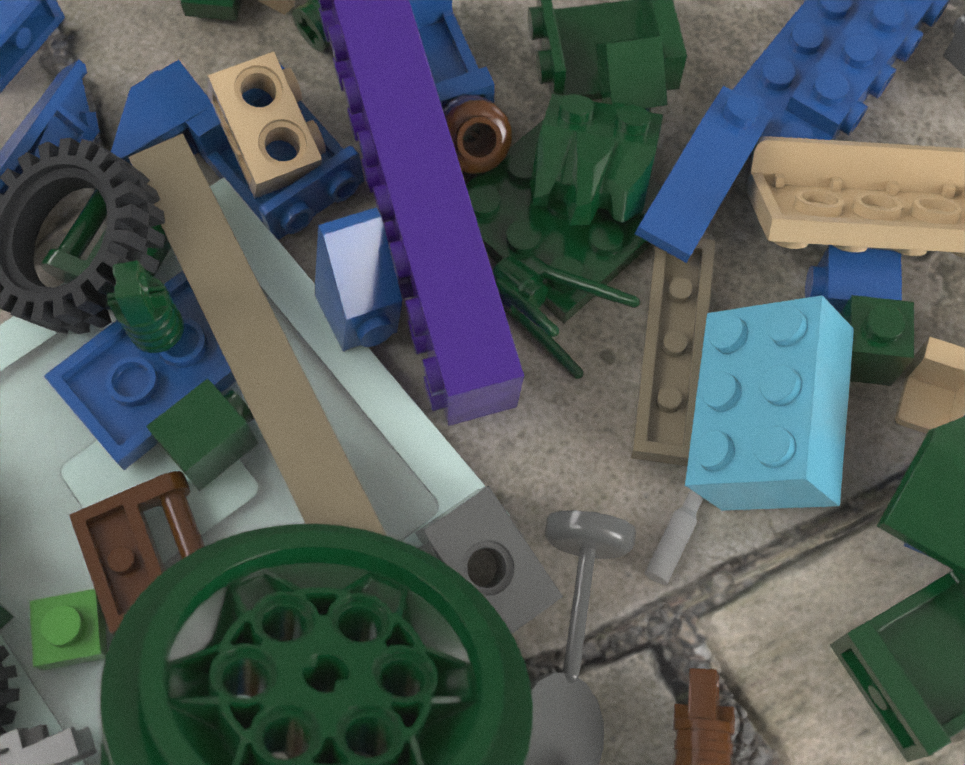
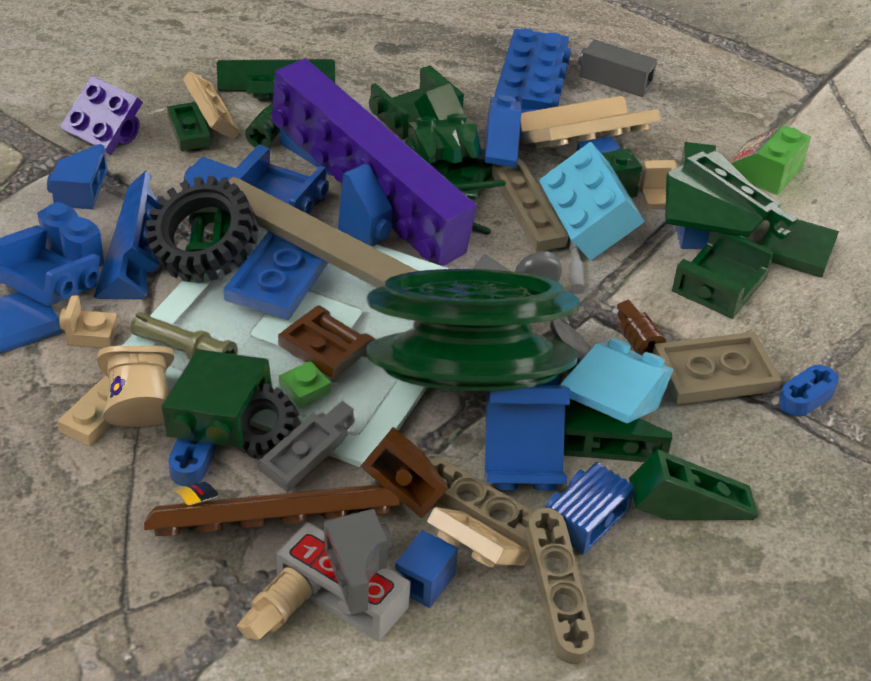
camera: 30 degrees left, 25 degrees down
(144, 308) = (269, 235): dark green hinge -> none
(205, 432) = (324, 285): dark green brick -> none
(253, 128) = (272, 164): tan brick -> none

